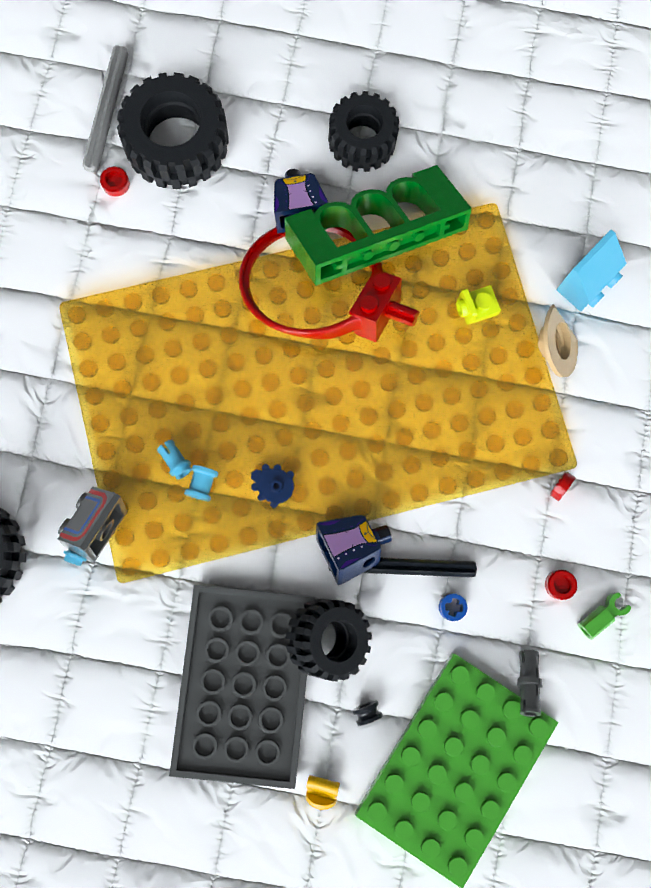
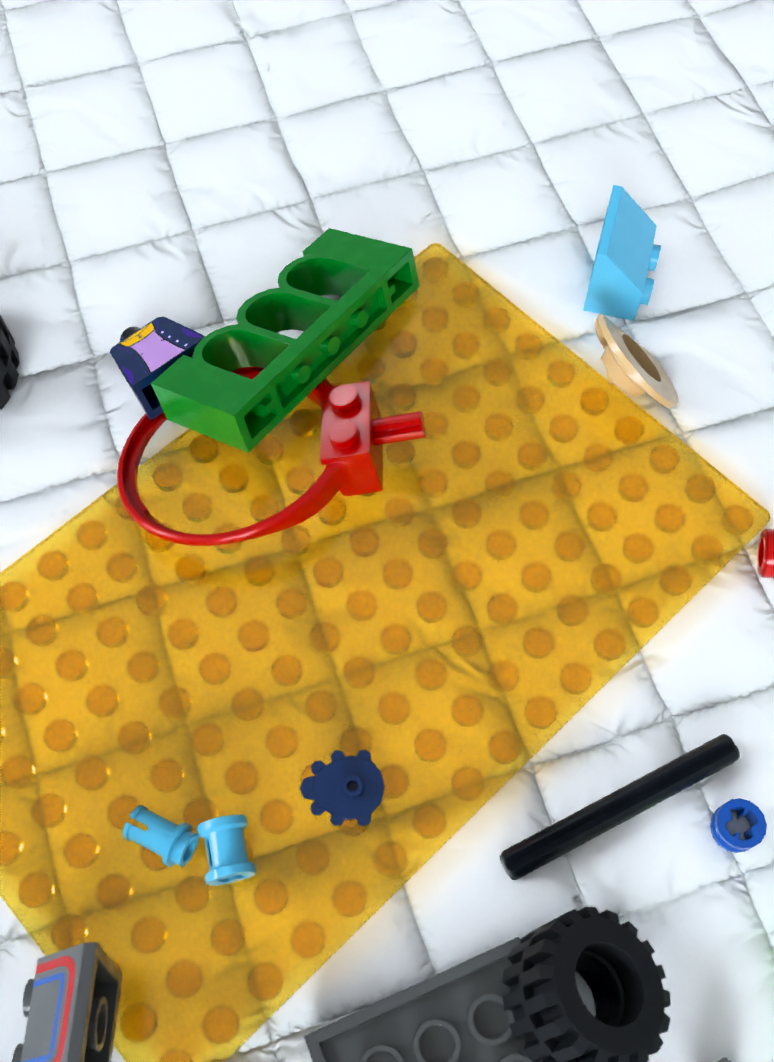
camera: 20 degrees left, 15 degrees down
(350, 545) = (525, 816): dark blue torso -> none
(368, 112) = (196, 212): black tyre -> none
(477, 304) = (493, 373): neon yellow bracket -> none

